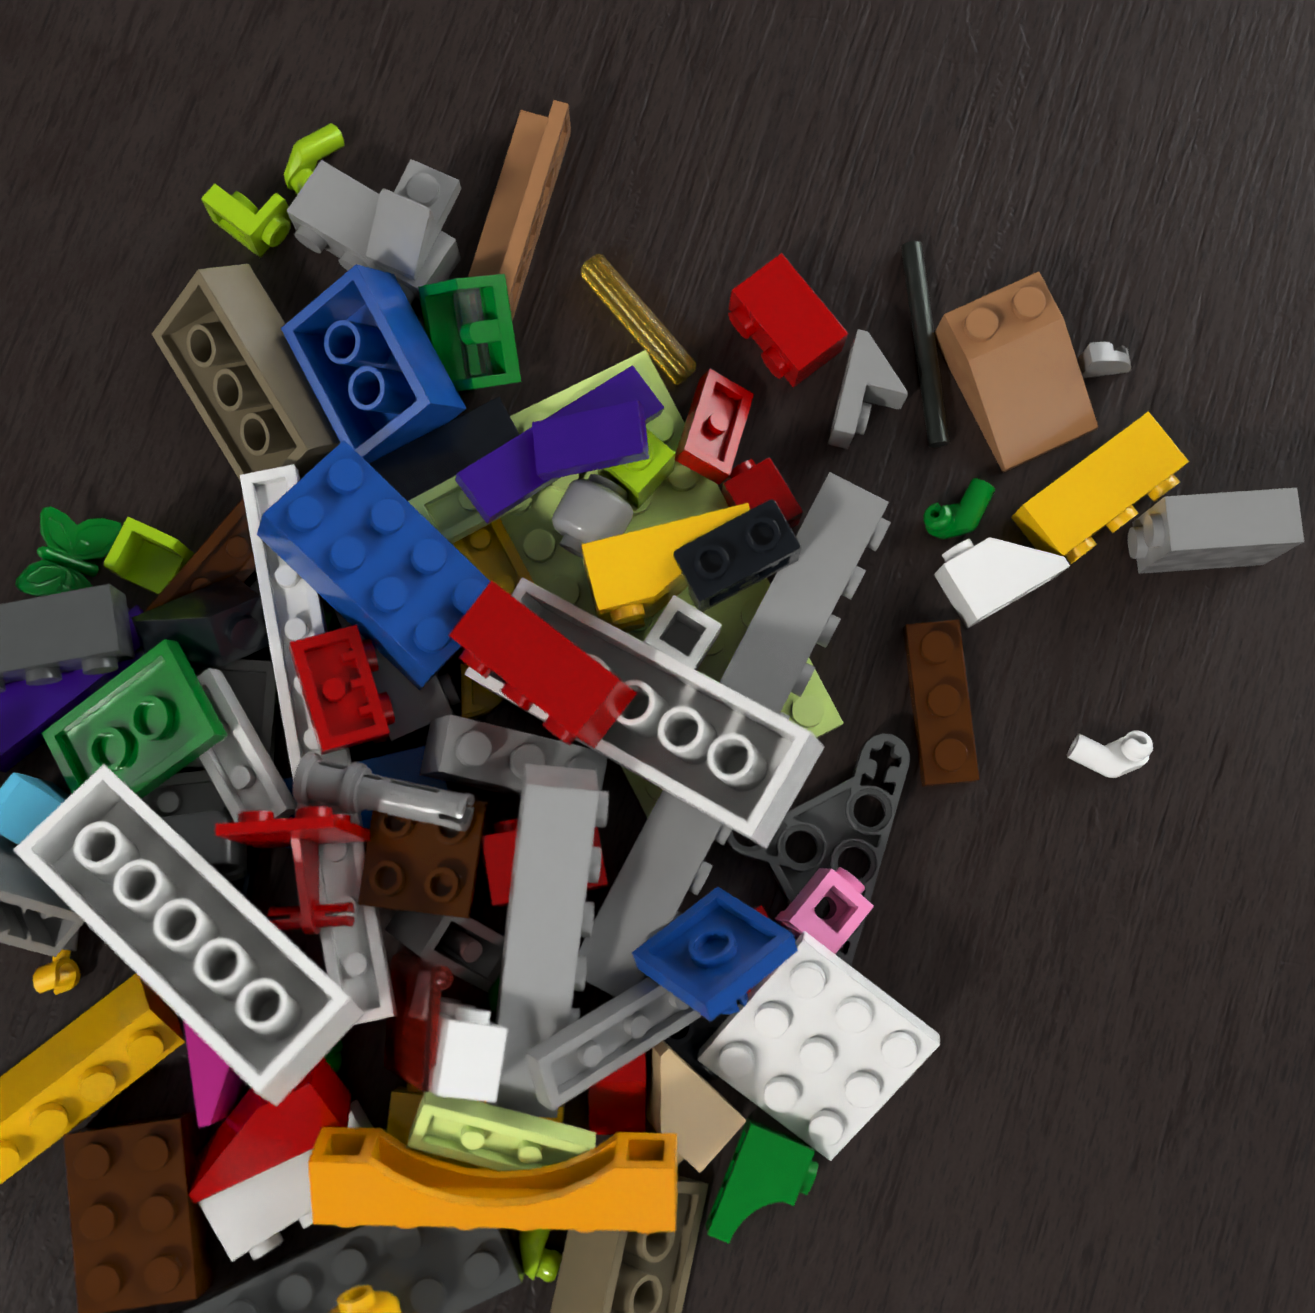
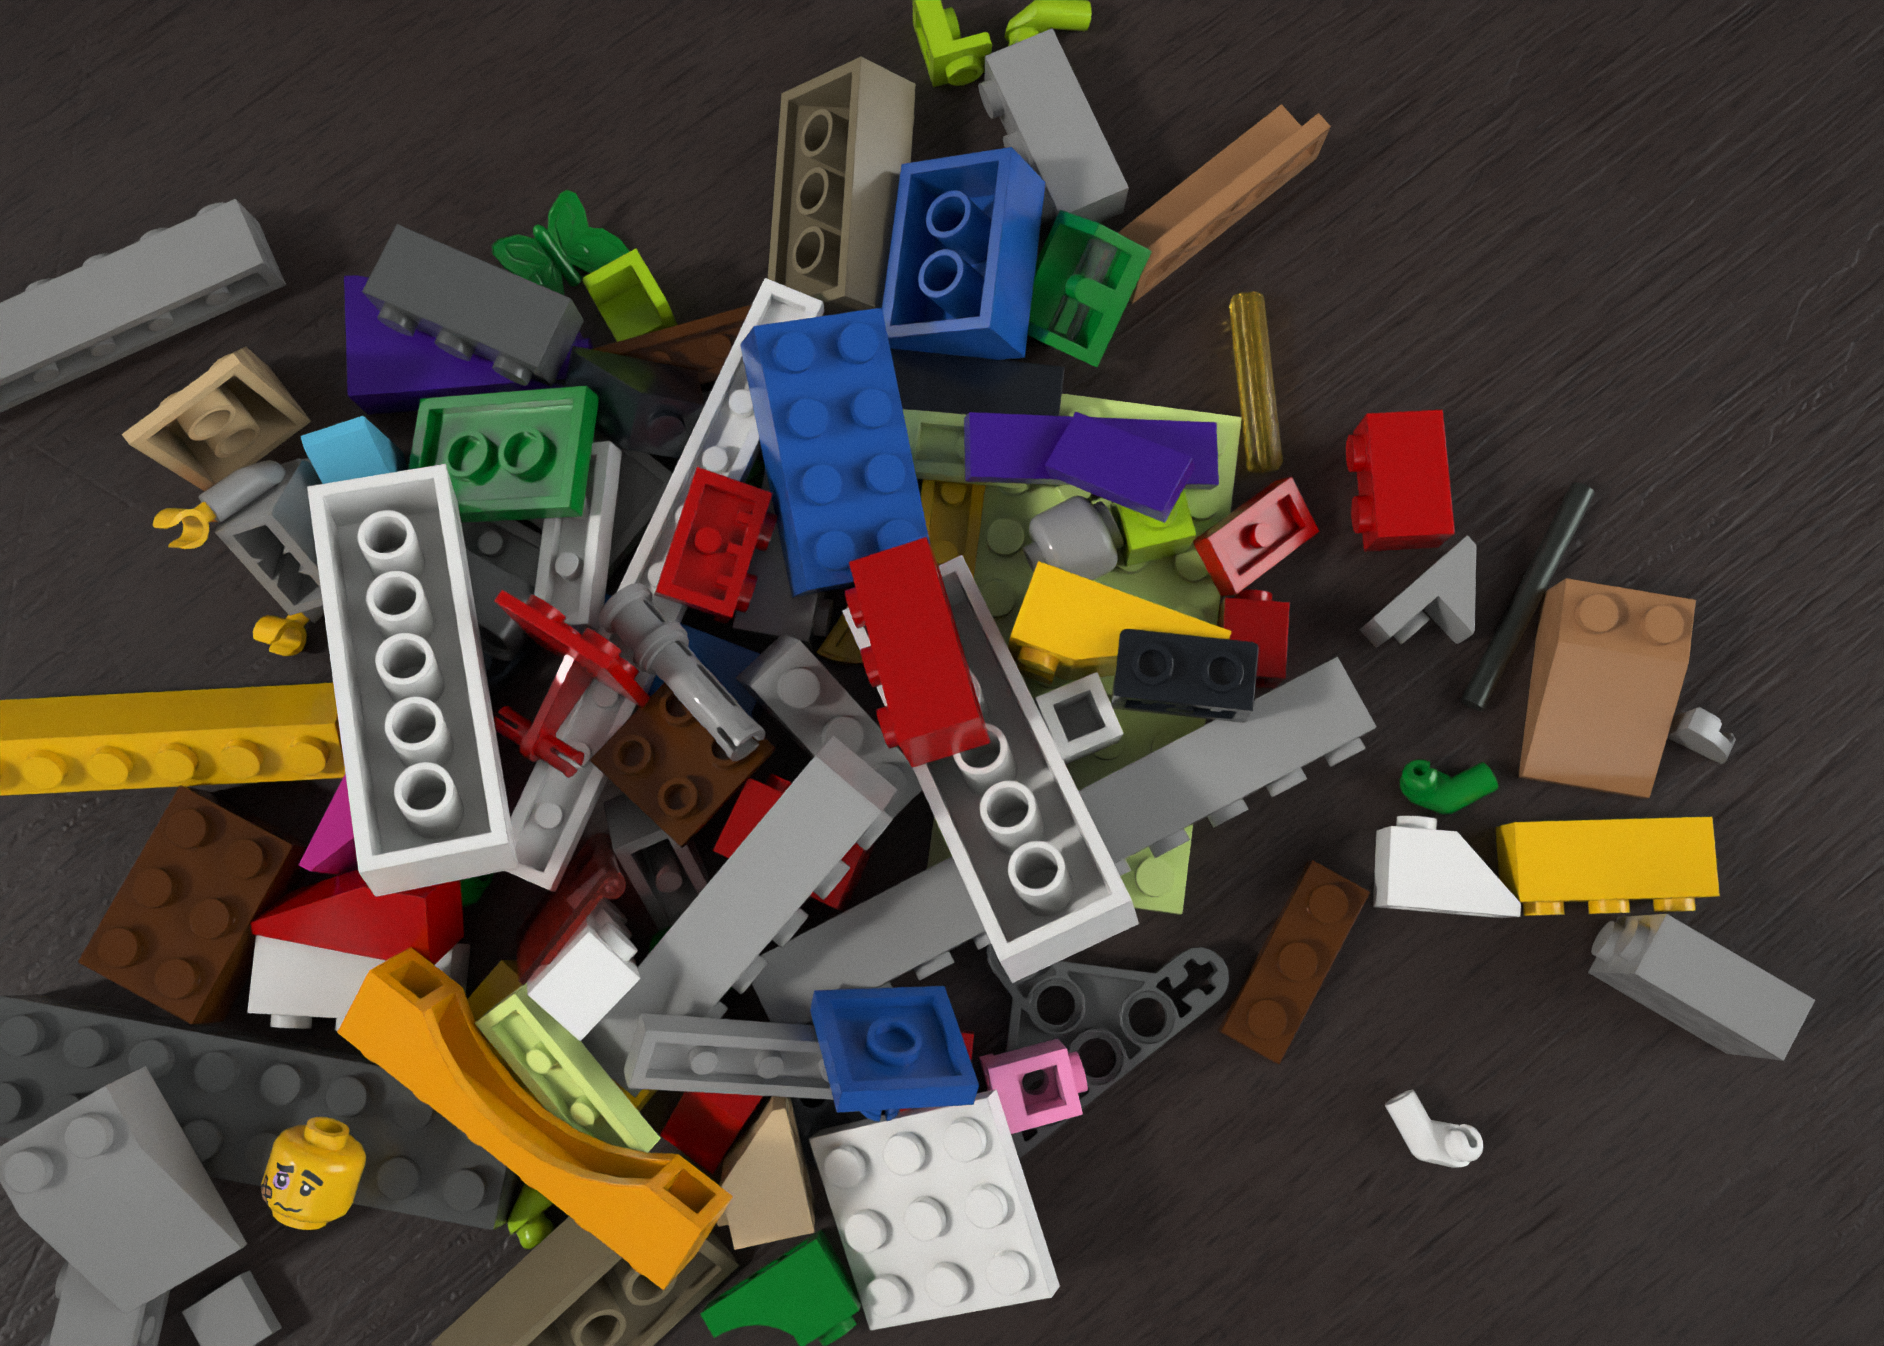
camera: 45 degrees right, 0 degrees up
(411, 219) = (1098, 139): light grey slope -> none

